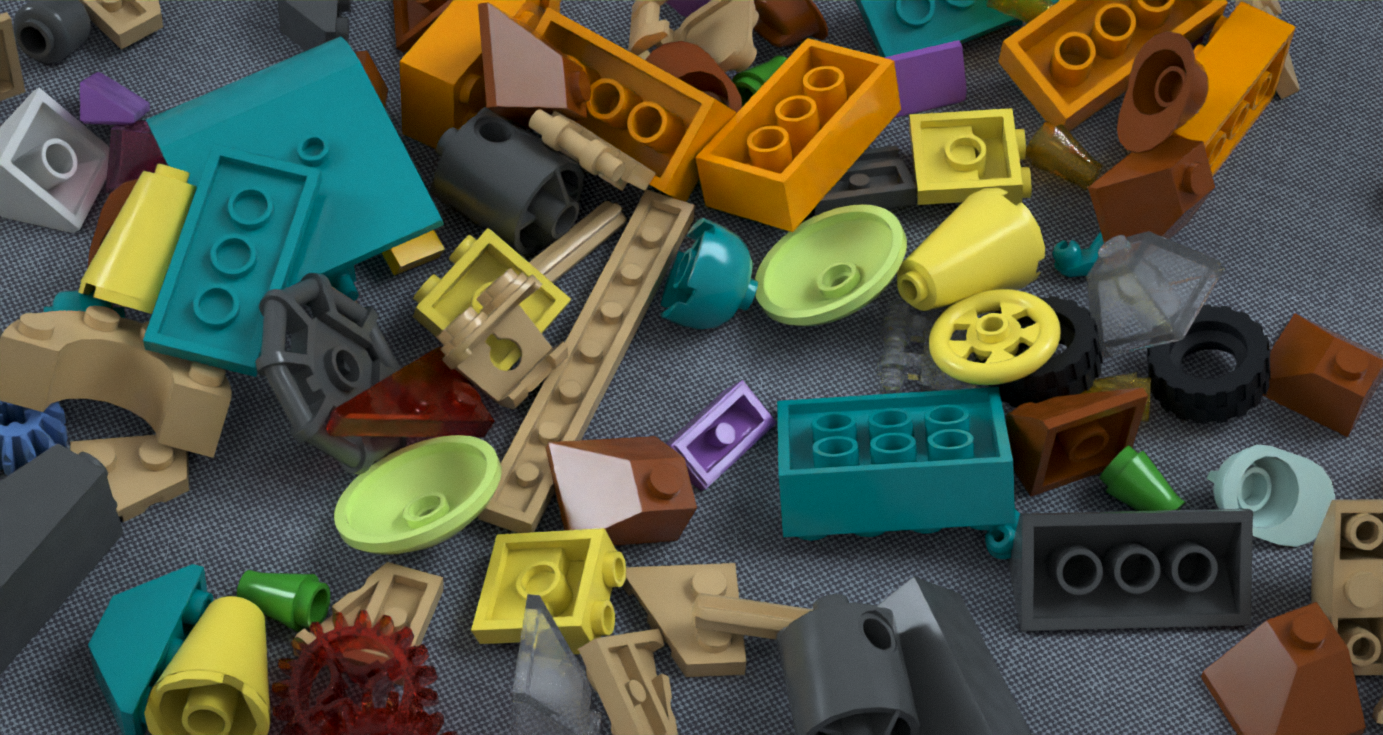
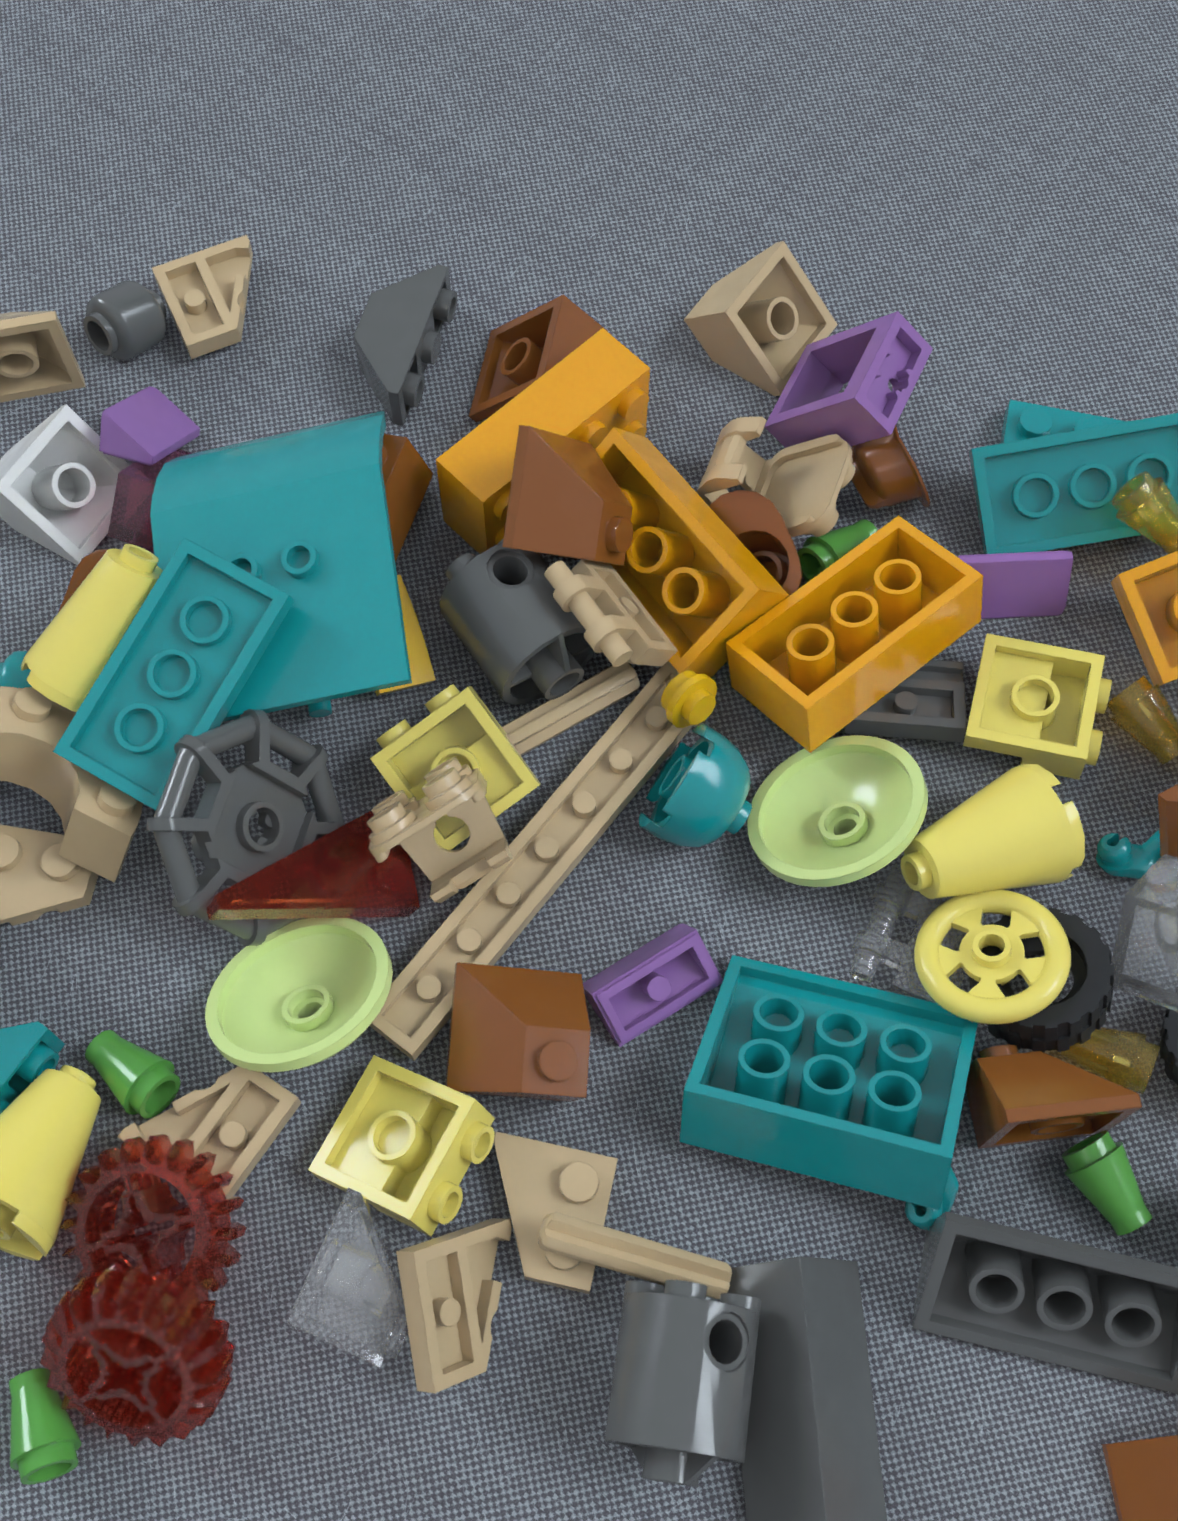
camera: 20 degrees right, 15 degrees up
(677, 208) = (689, 699): none -> yellow plate

